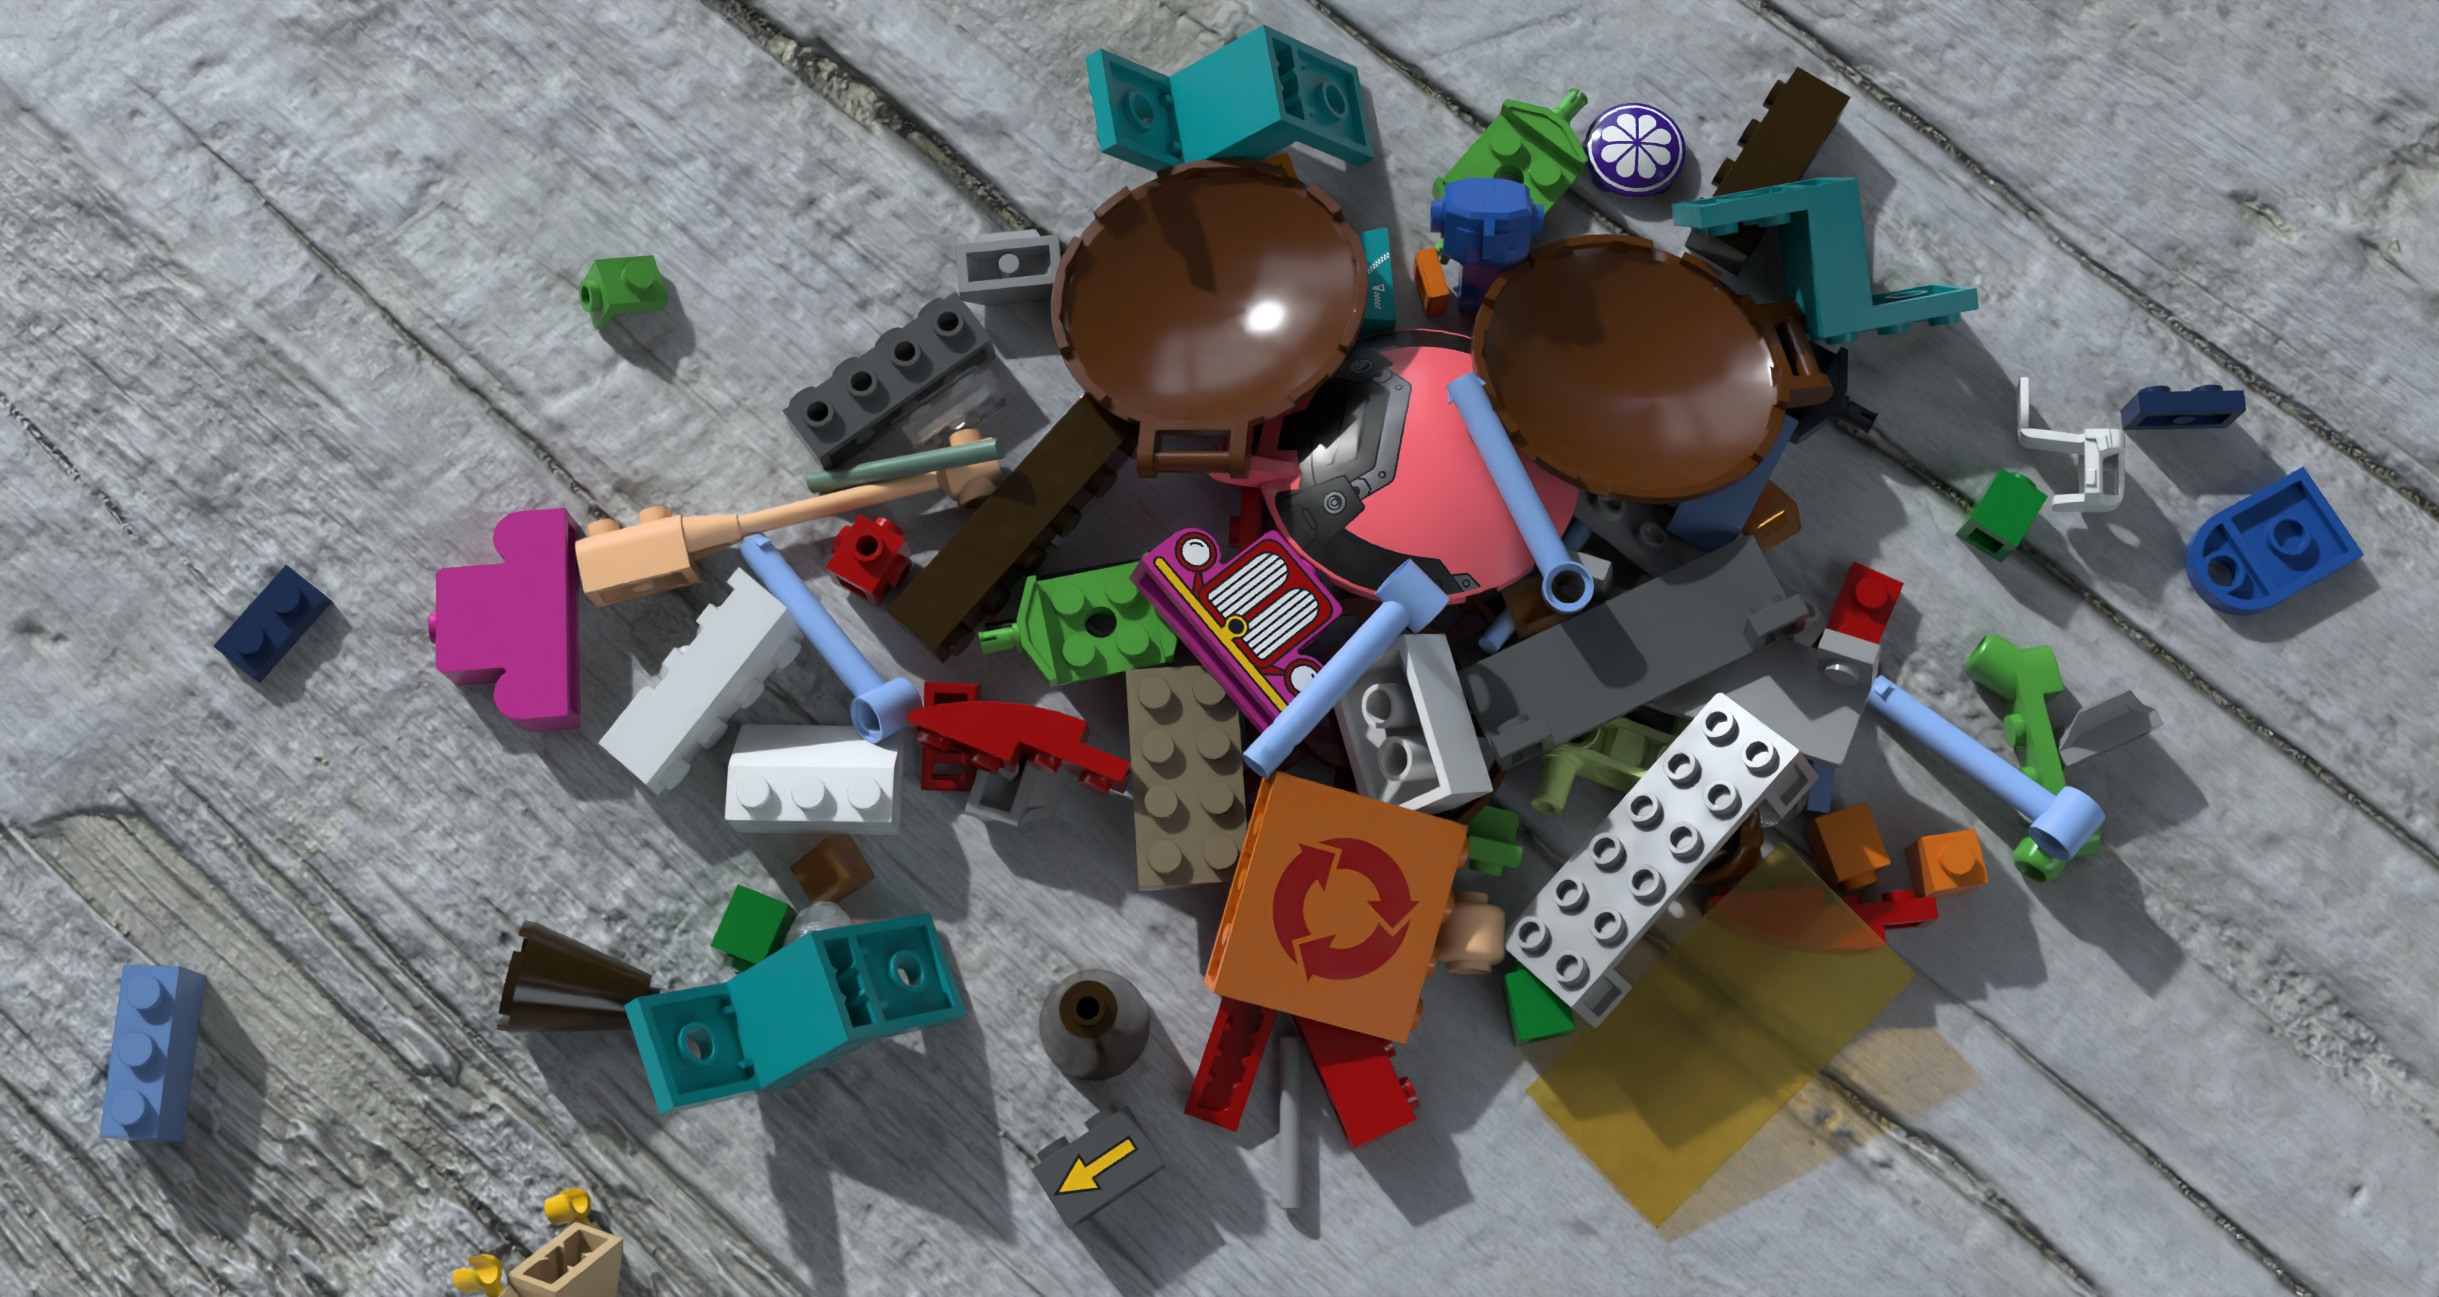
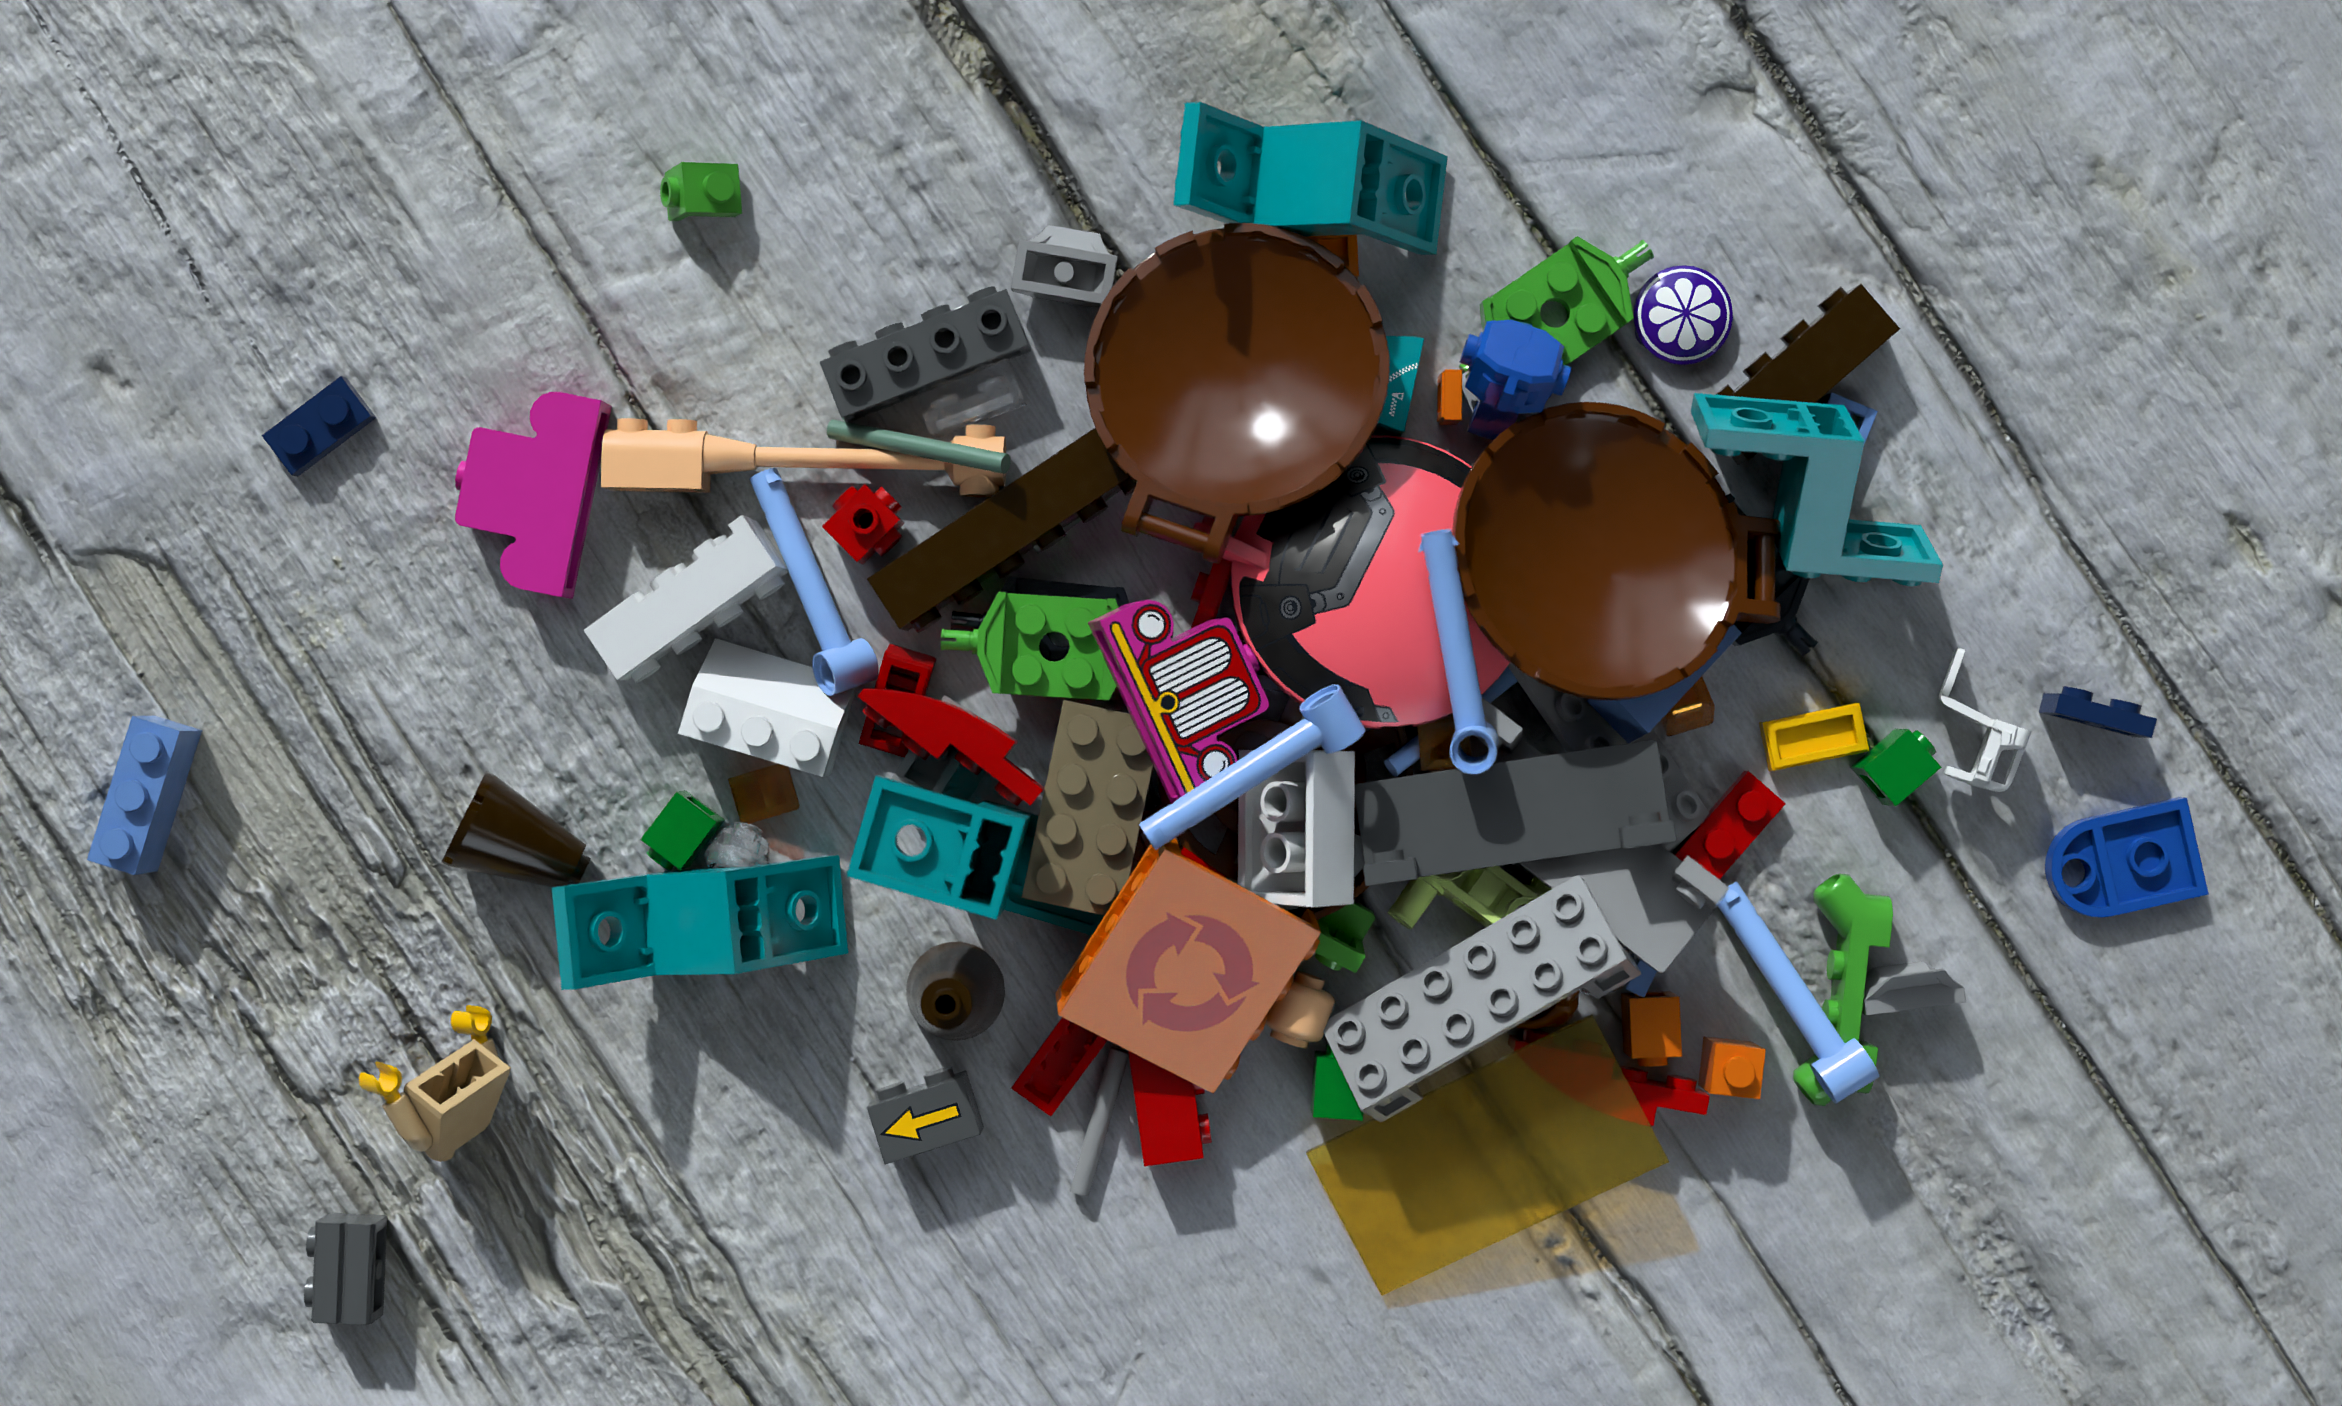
camera: 20 degrees right, 15 degrees up
(1071, 847) = (971, 856): none -> teal bracket
(1907, 512) = (1814, 736): none -> yellow tile

